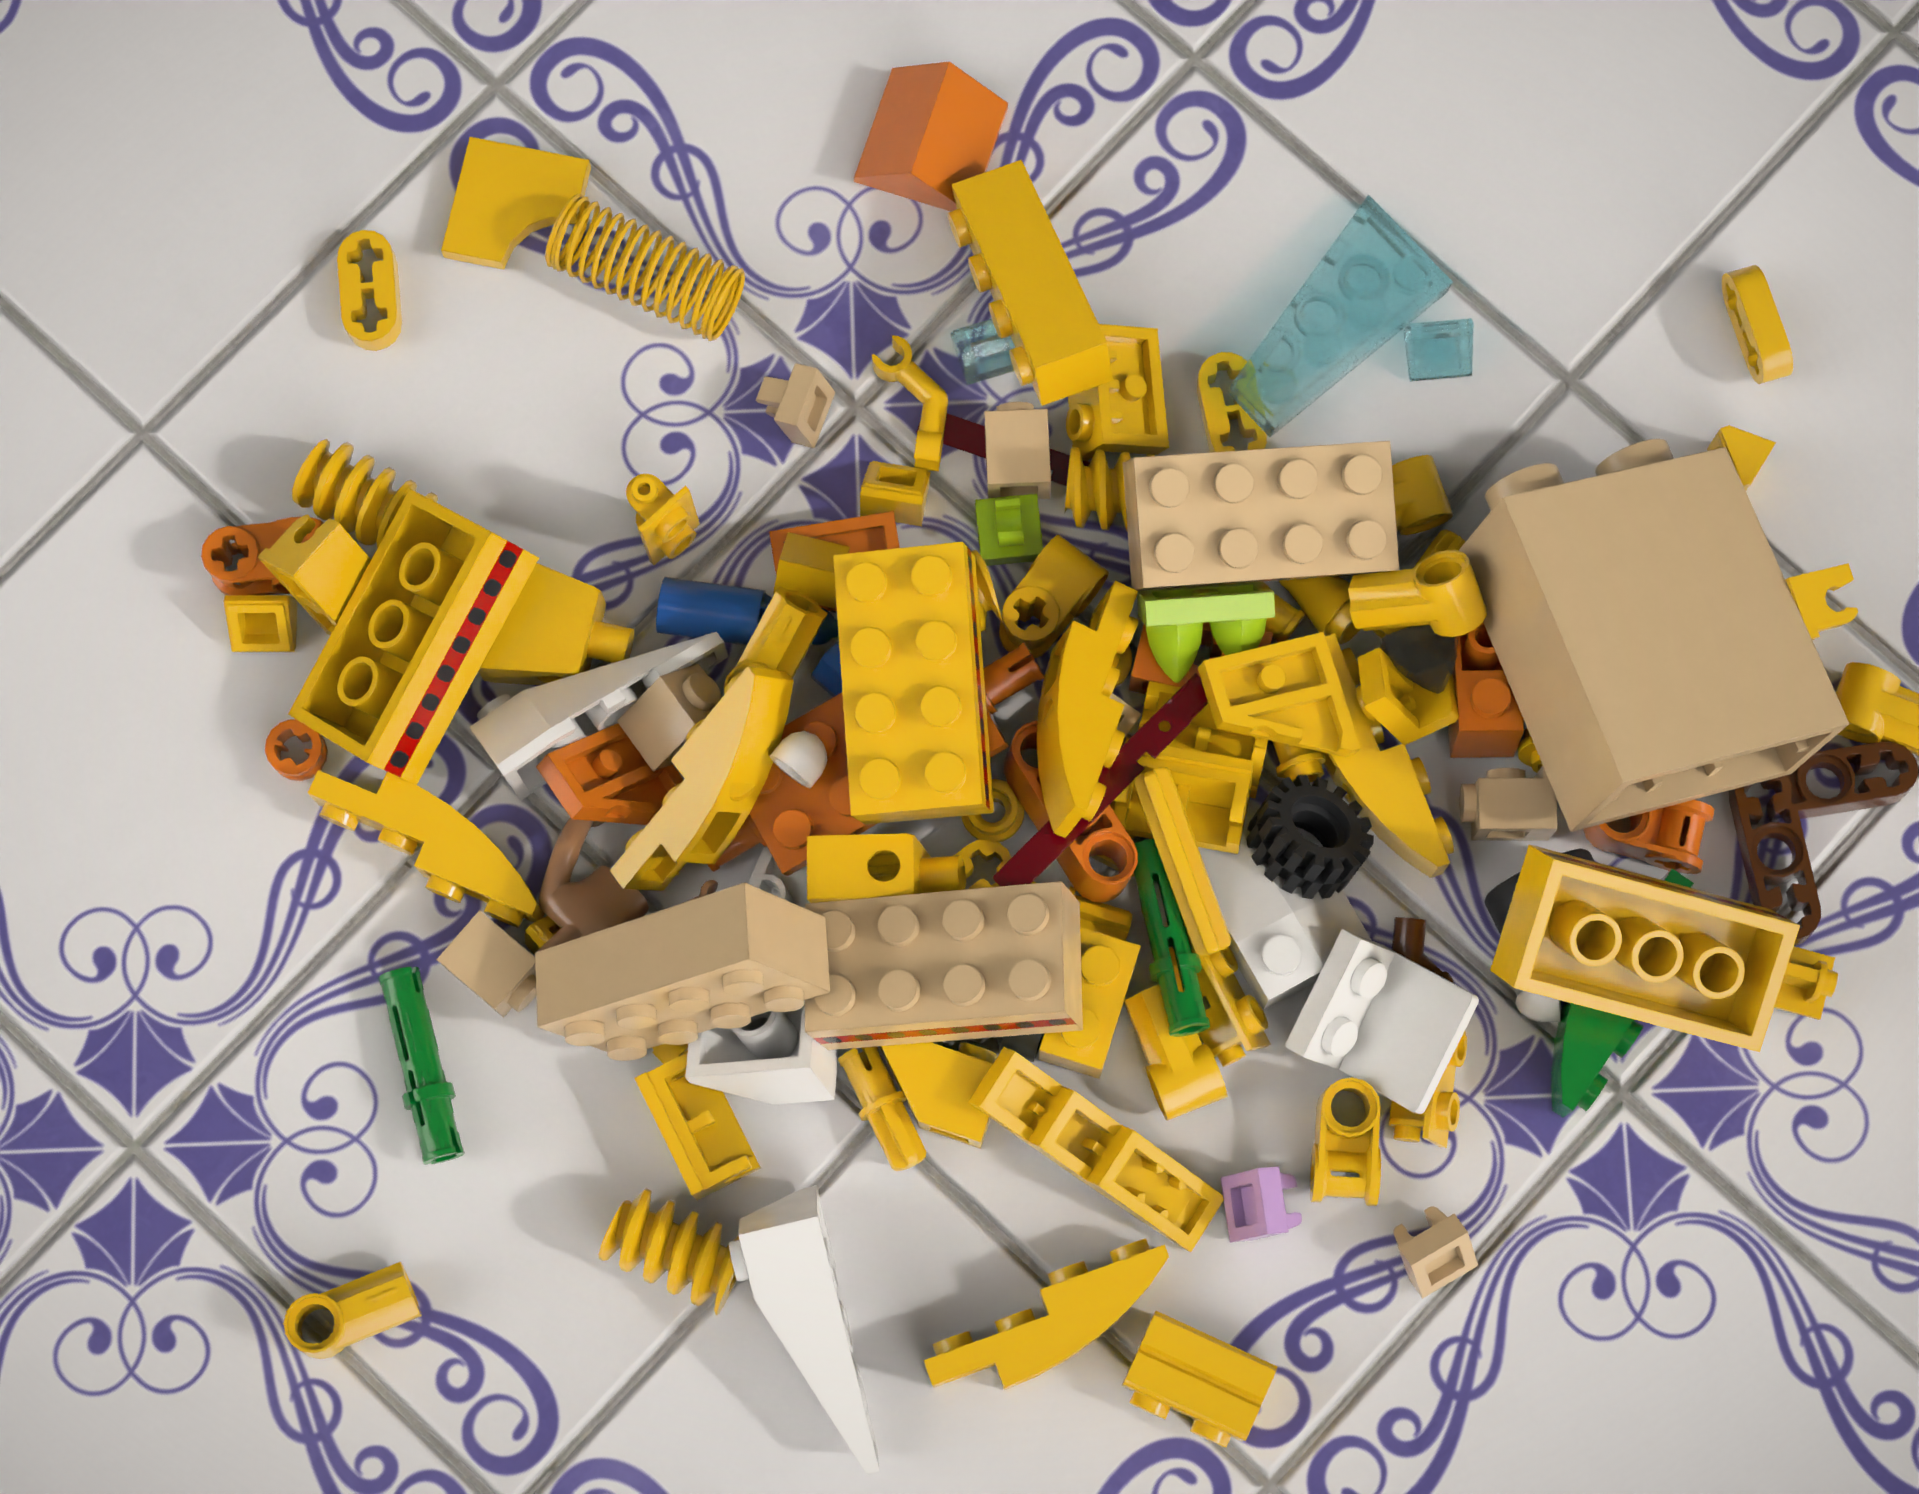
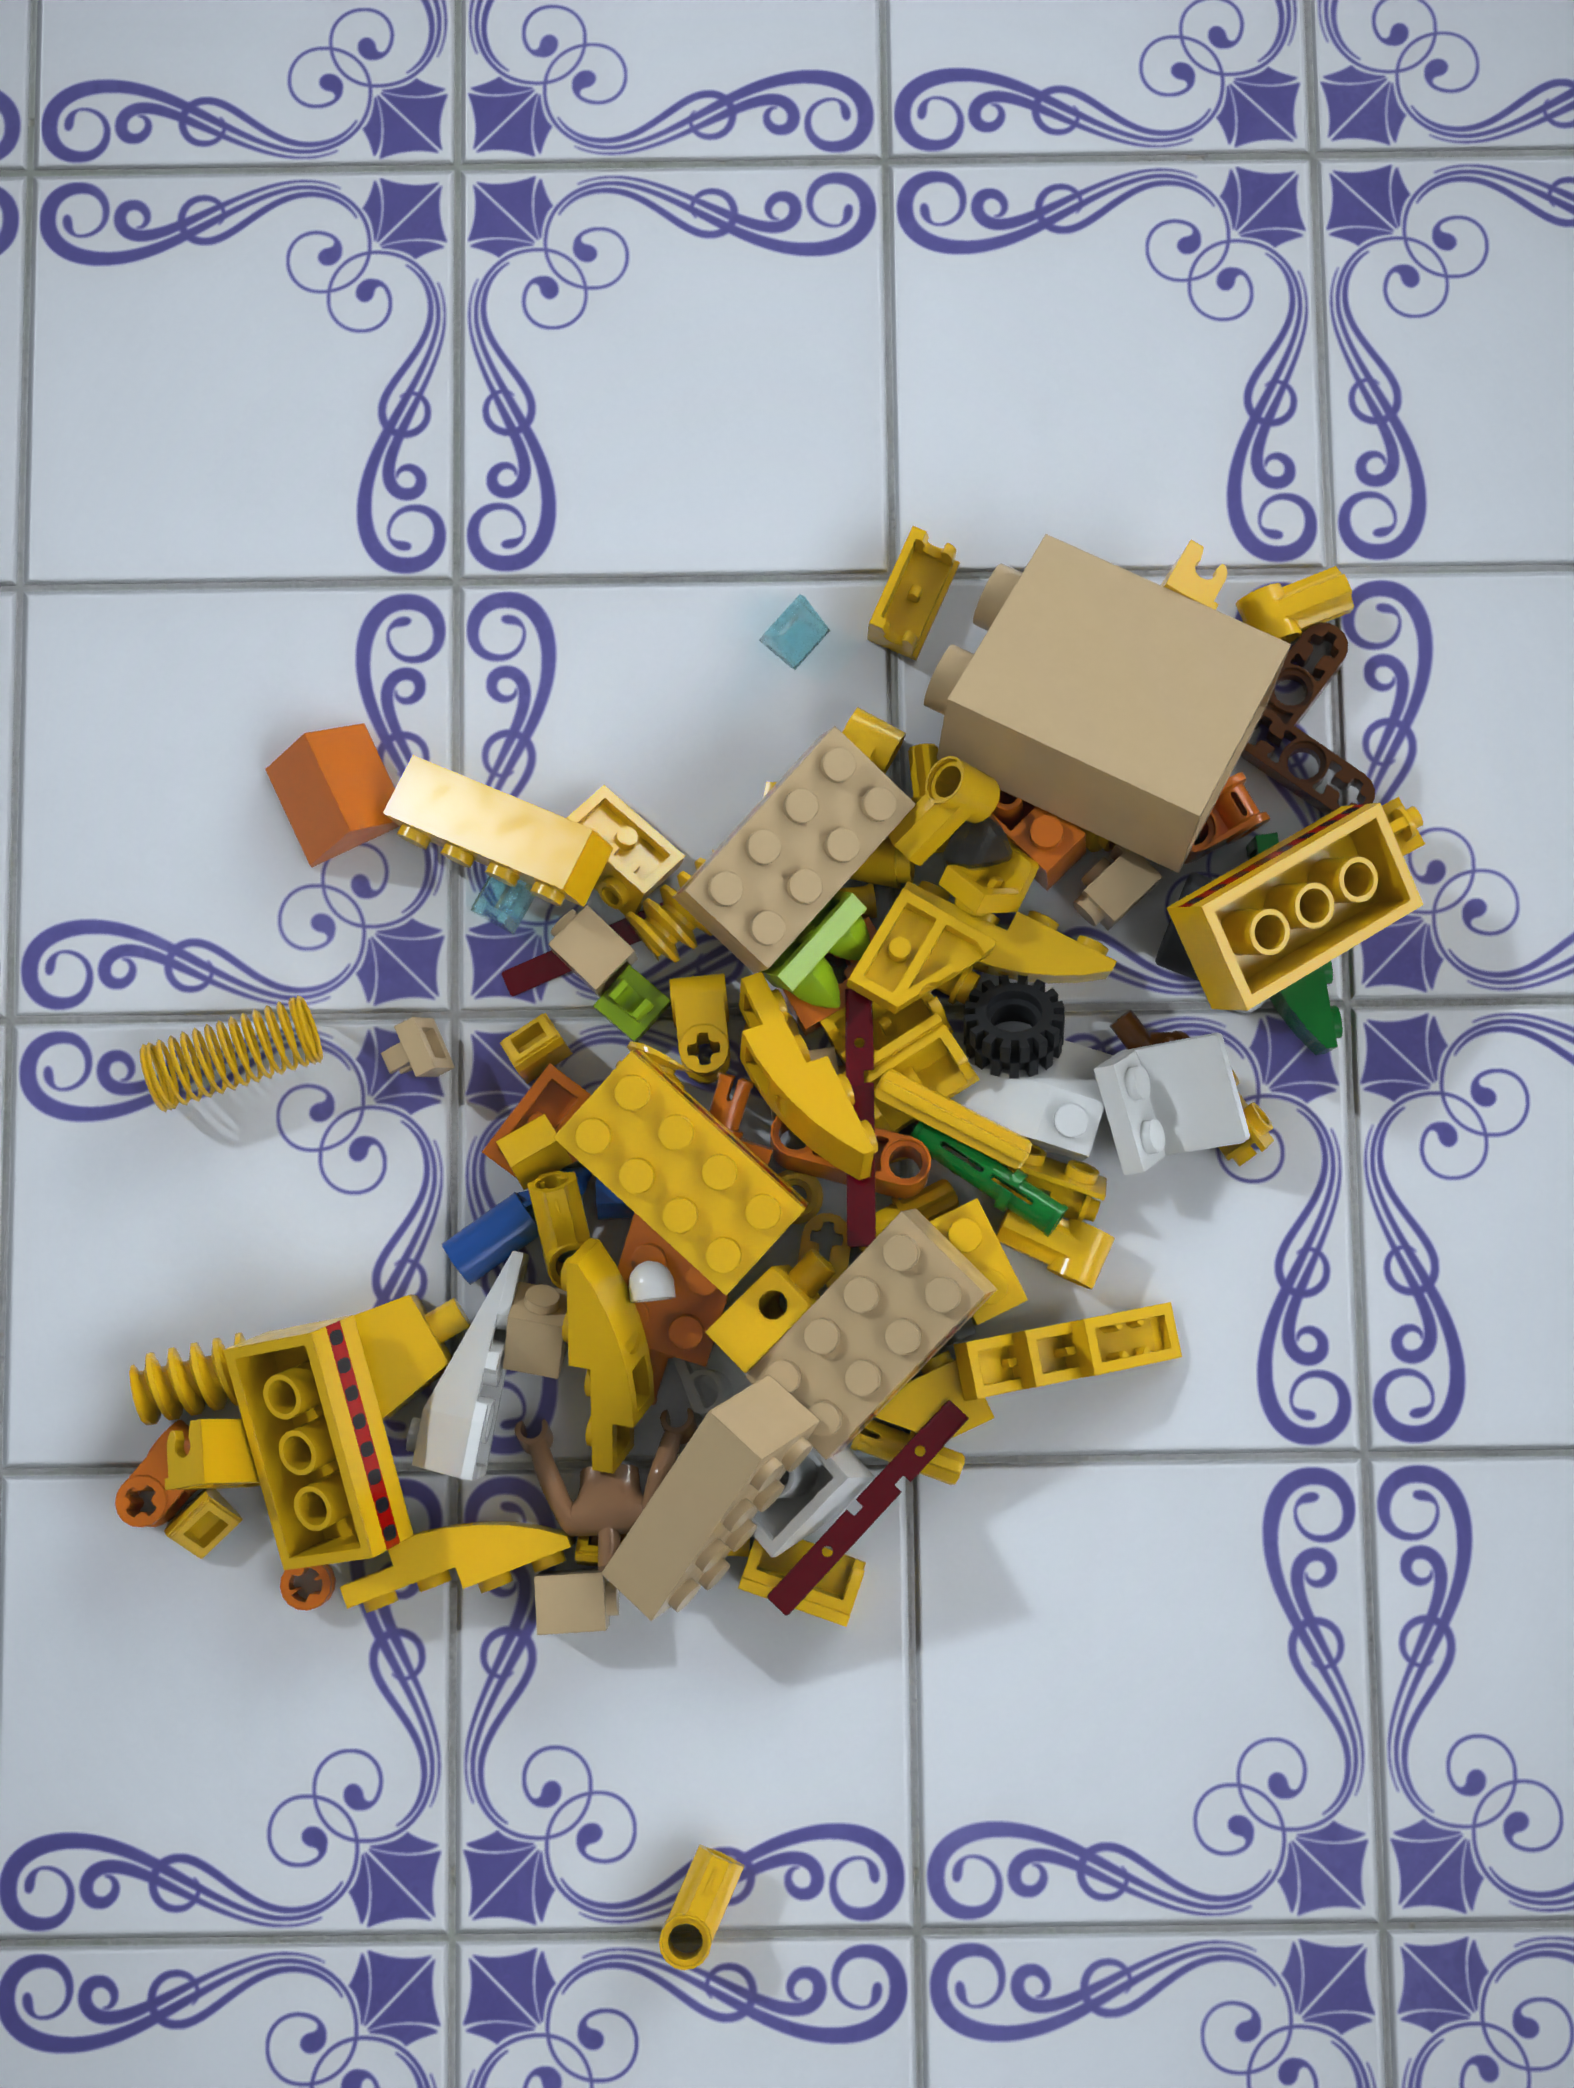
camera: 45 degrees left, 5 degrees up
(383, 289) = (50, 1246): yellow beam -> none
(424, 1079) = (598, 1713): green pin -> none
(506, 197) = (92, 1089): yellow tile -> none
(607, 779) = (535, 1412): orange wing -> none
(662, 518) = (404, 1210): yellow hinge -> none
(671, 1249) = (866, 1668): yellow piece -> none
(795, 1284) = (966, 1622): white wedge -> none
(815, 1114) = (875, 1501): none -> dark red piece
(932, 396) = (496, 963): yellow arm -> none
(1078, 1312) = (1154, 1463): yellow slope -> none
(1199, 1379) = (1264, 1433): yellow brick -> none
(1216, 413) = (709, 784): yellow beam -> none
(1257, 1204) = (1197, 1289): lavender tile -> none
(1344, 312) = (713, 660): clear light blue wing -> none
(1346, 1148) = (1217, 1201): yellow piece -> none
(1437, 1253) = (1335, 1213): tan tile -> none
(1569, 406) = (913, 595): none -> yellow hinge
(1745, 449) = (1051, 521): yellow slope -> none
(1757, 324) = (979, 432): yellow beam -> none

